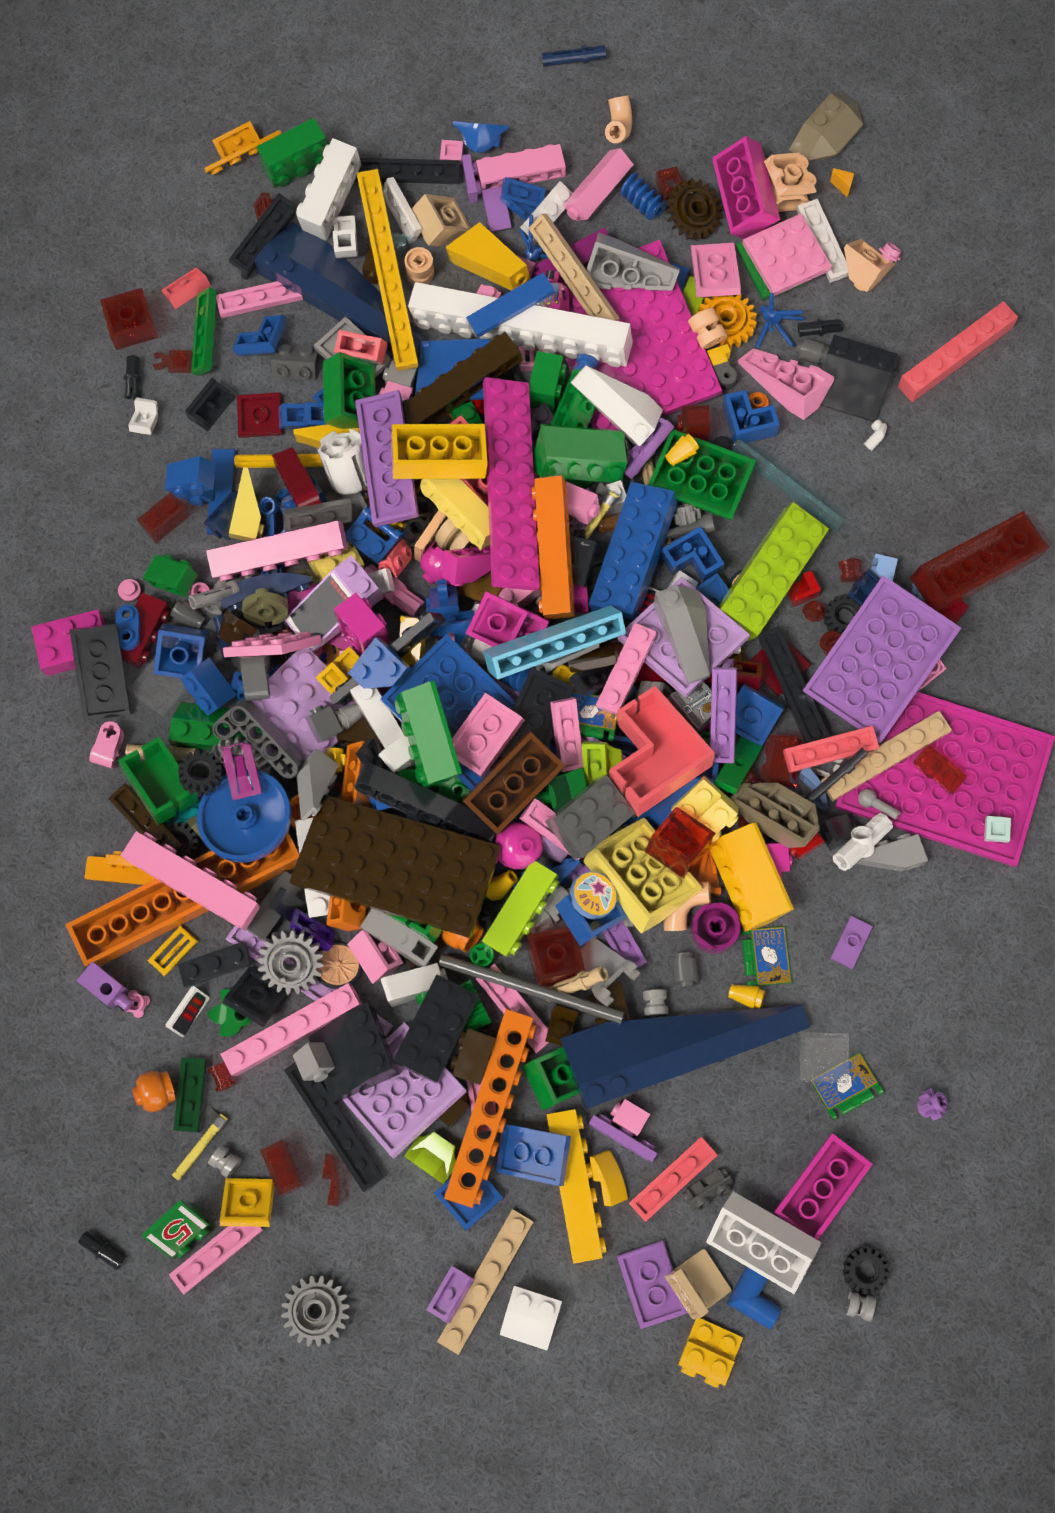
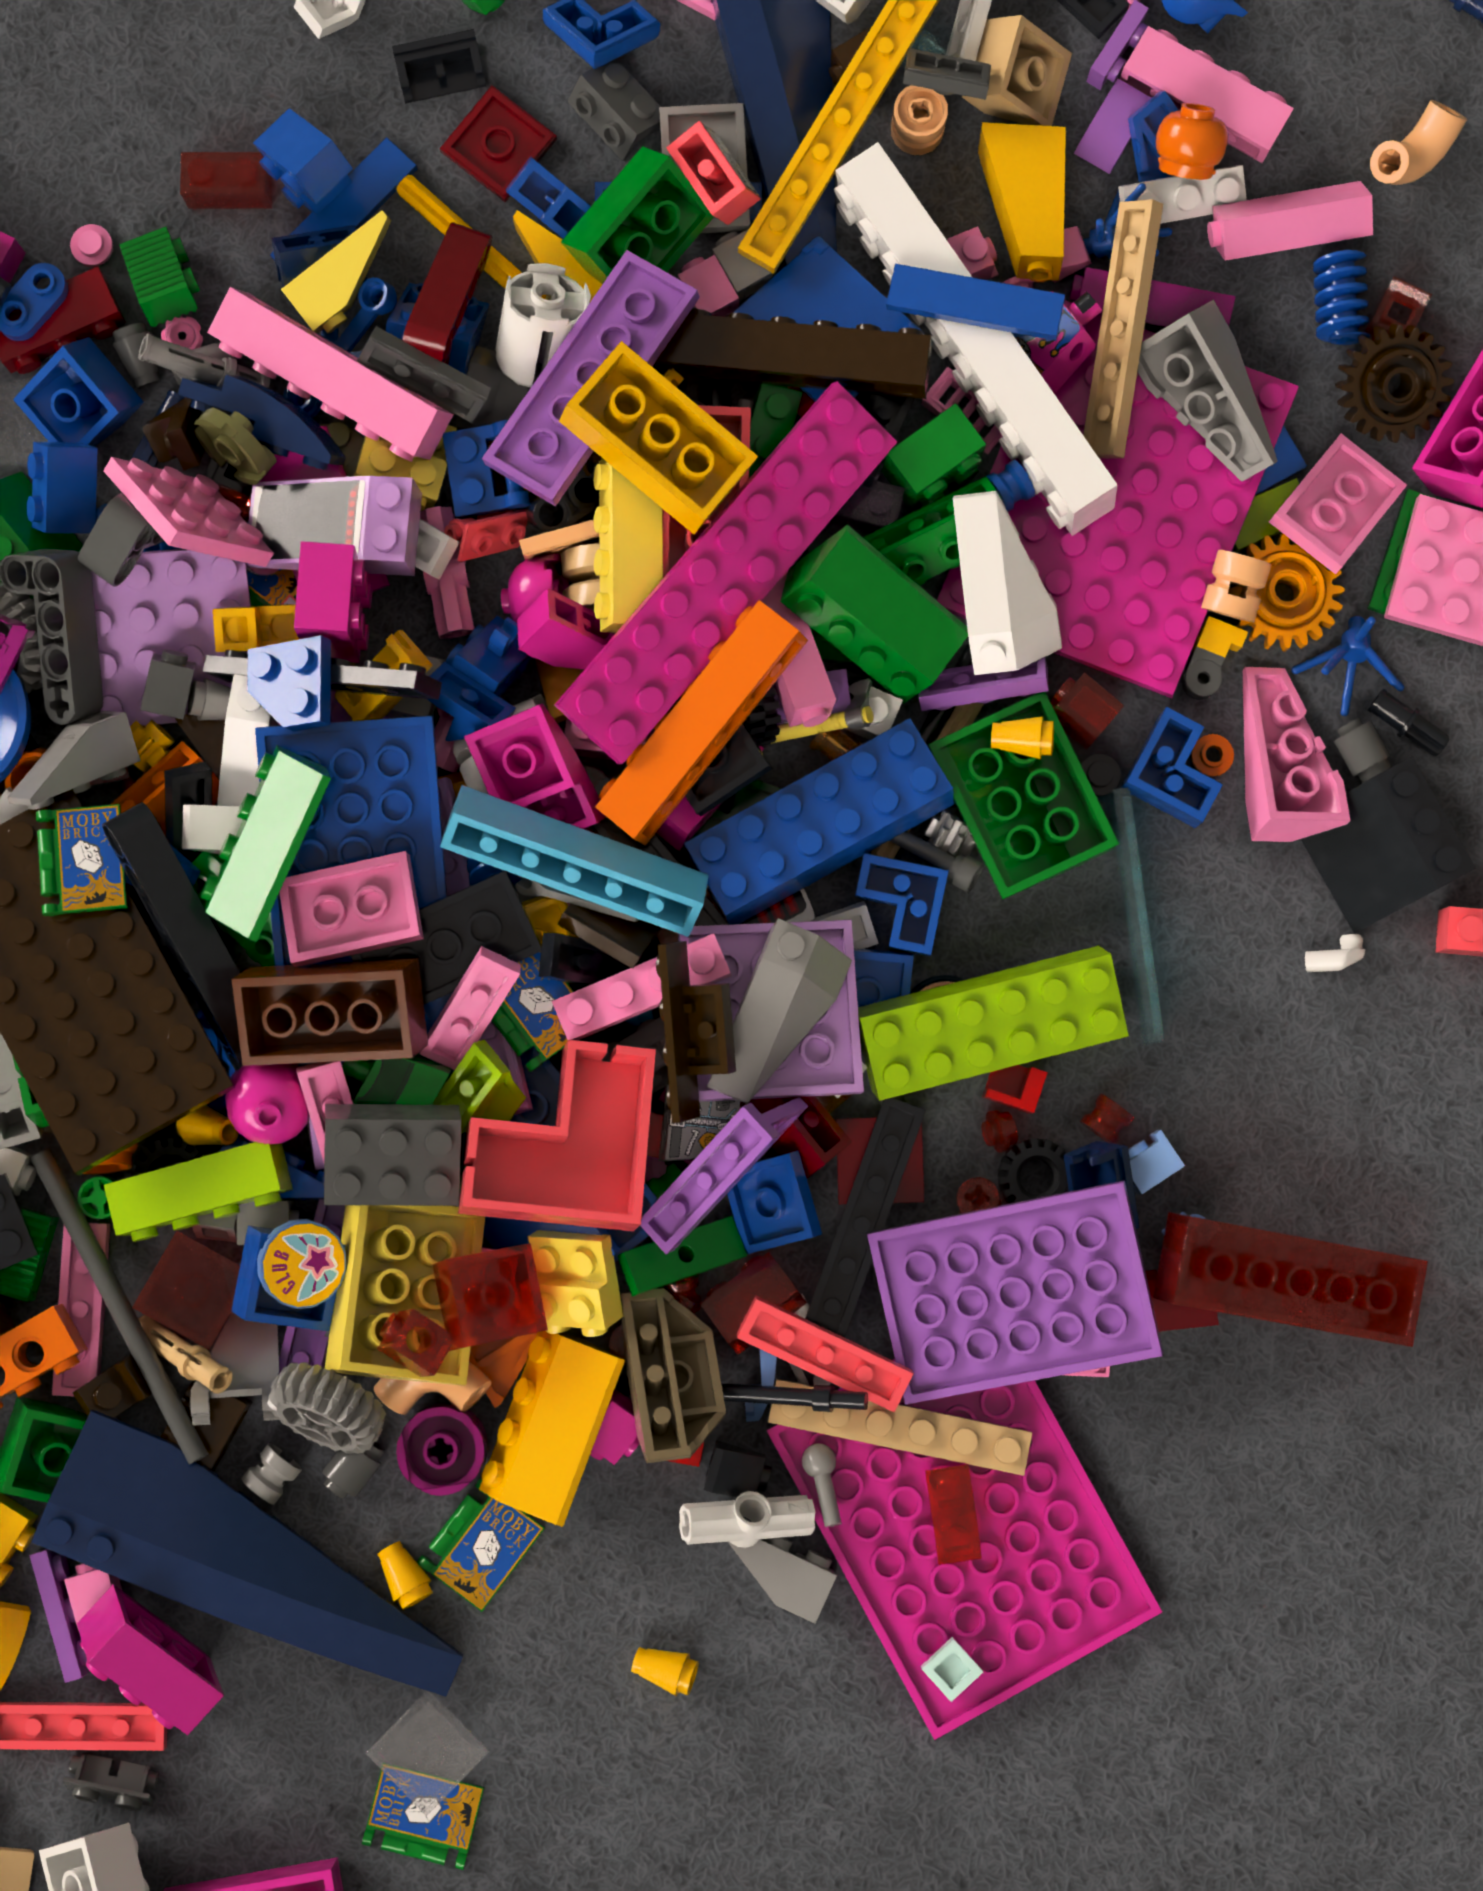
camera: 35 degrees right, 10 degrees up
(355, 815) = (79, 861): none -> piece
(417, 238) = (947, 74): none -> dark grey plate
(534, 185) = (1191, 142): none -> orange piece
(655, 947) = (326, 1408): none -> light grey gear
(665, 660) = (695, 1028): none -> dark brown bracket
(676, 880) = (433, 1342): none -> clear red brick
(679, 1116) = (148, 1661): none -> dark pink brick
(851, 942) = (612, 1632): medium lavender plate -> none
(886, 936) = (666, 1669): none -> yellow cone

